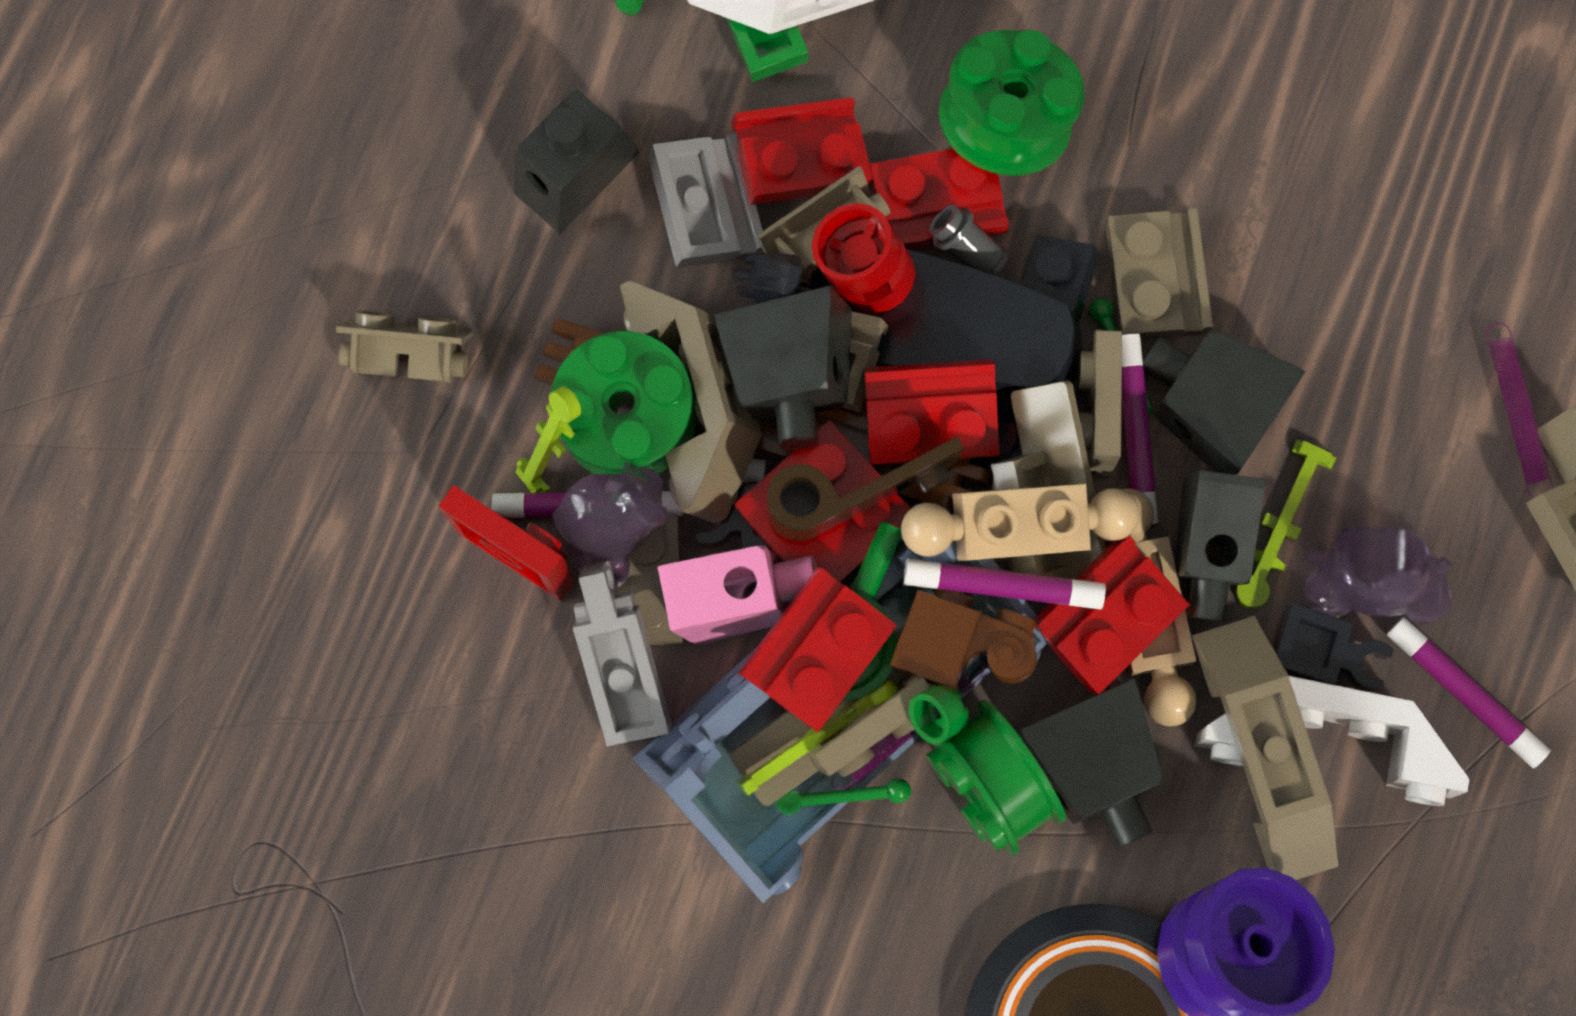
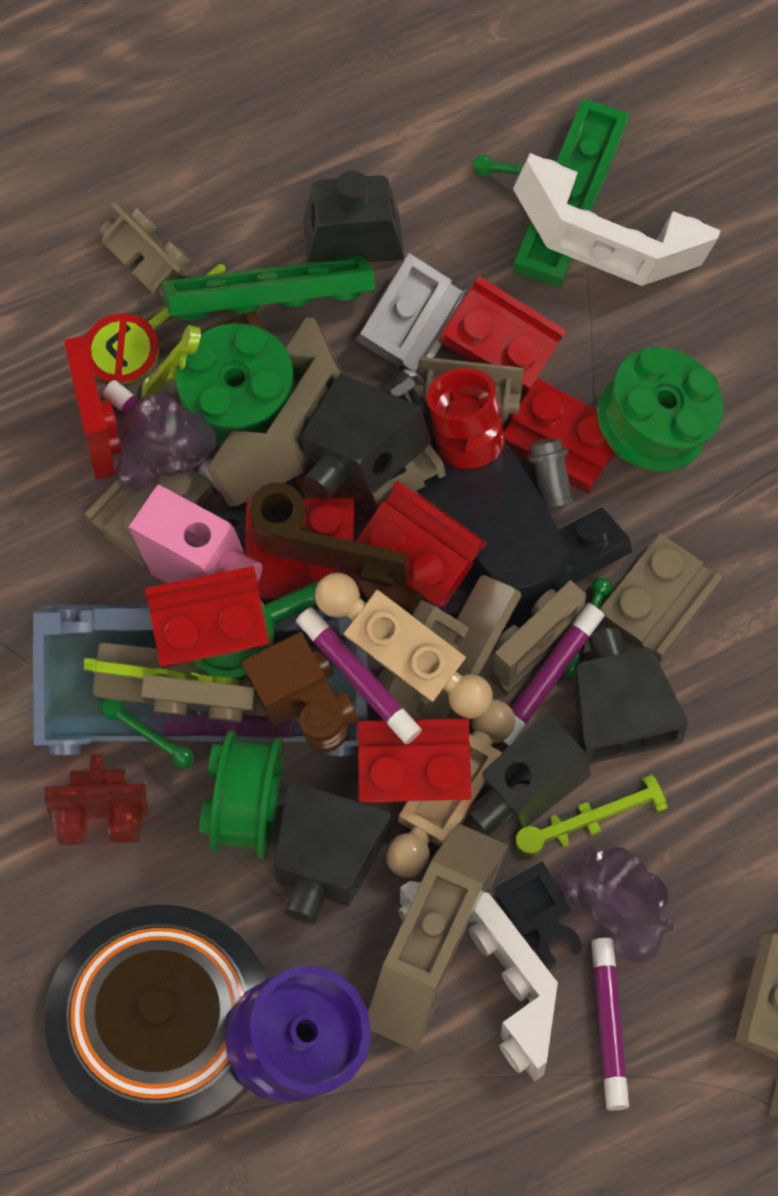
camera: 40 degrees right, 10 degrees down
(466, 446) = (126, 345): none -> piece
(551, 286) = (286, 284): none -> green plate
(618, 660) = (90, 531): light grey hinge -> none
(888, 882) = (97, 795): none -> clear red hips
(925, 719) = (240, 713): green hinge -> none

